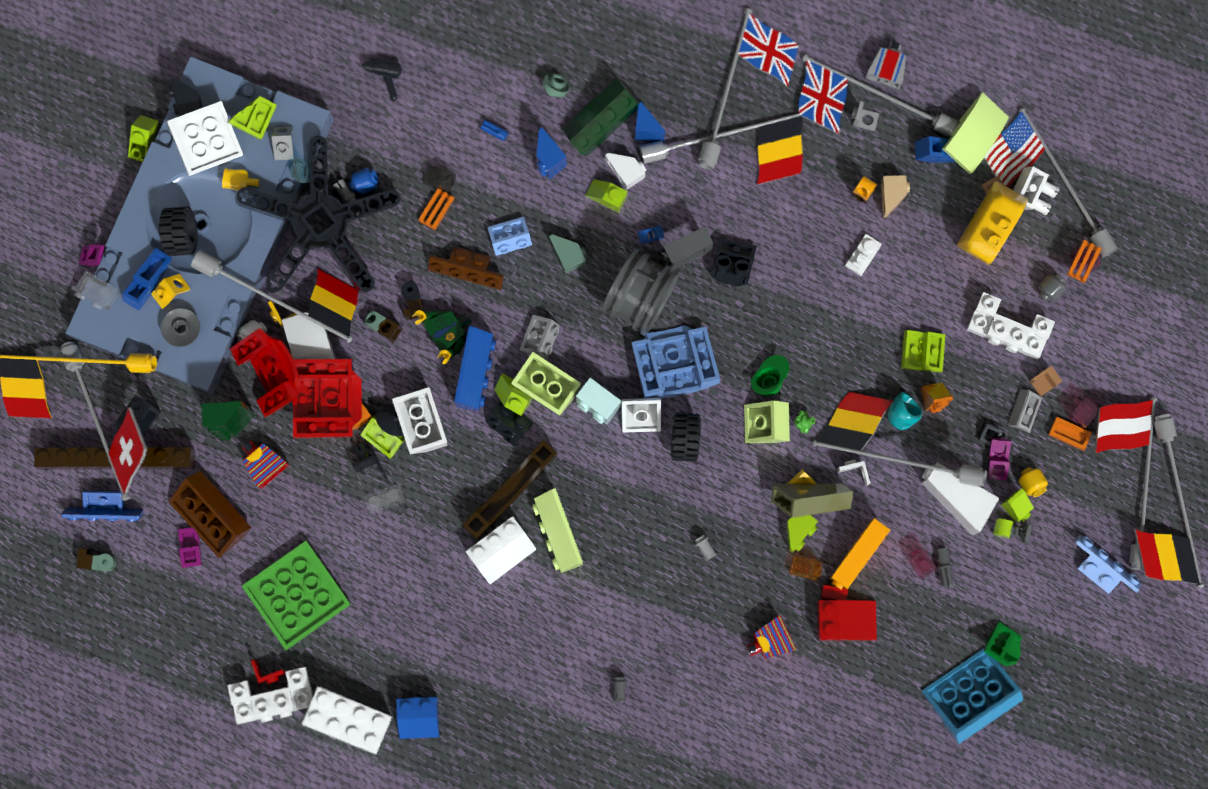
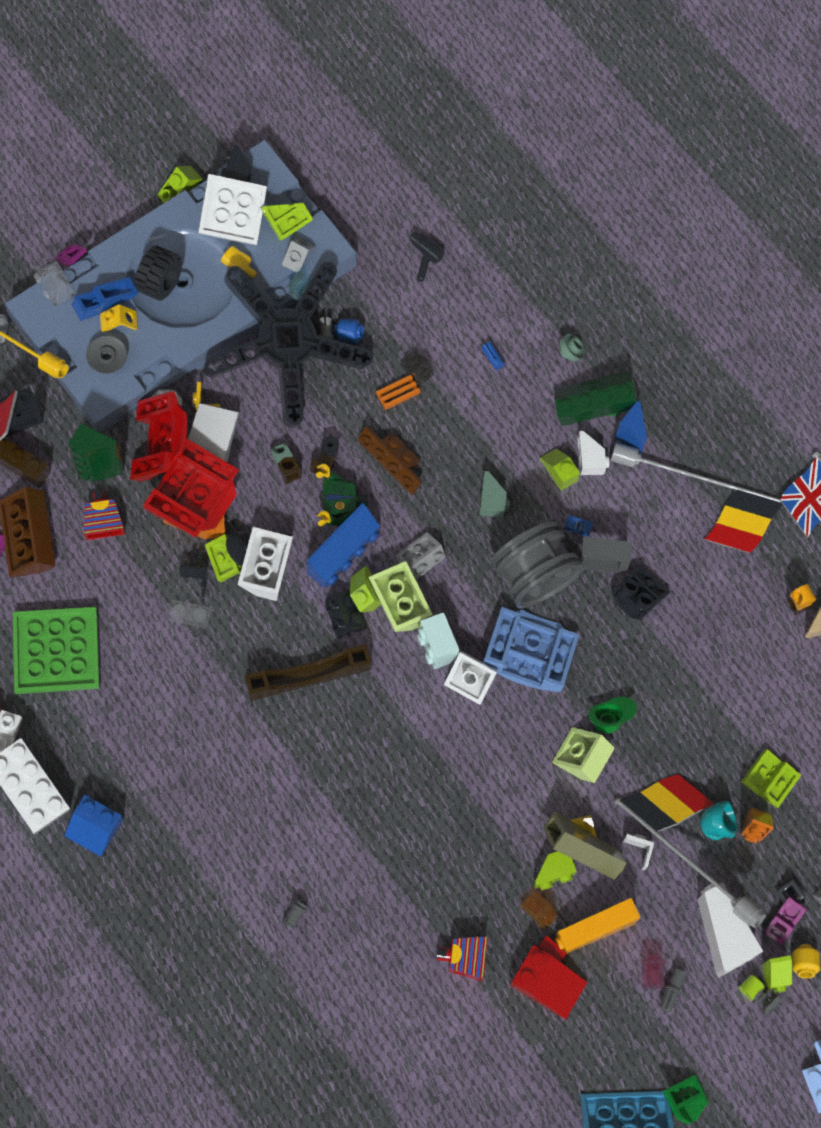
camera: 25 degrees right, 10 degrees down
(329, 306) = (251, 415): flag -> none
(501, 550) = (265, 721): white slope -> none
(509, 236) = (449, 453): light blue bracket -> none
(549, 156) = (528, 403): blue slope -> none
(558, 531) = (328, 736): yellowish green slope -> none
(685, 437) = (499, 720): black tyre -> none
(705, 547) = (456, 834): light grey pin -> none
(764, 50) = (781, 427): flag -> none
(804, 421) = (619, 774): bright green plant -> none
(863, 255) = (766, 658): white plate -> none

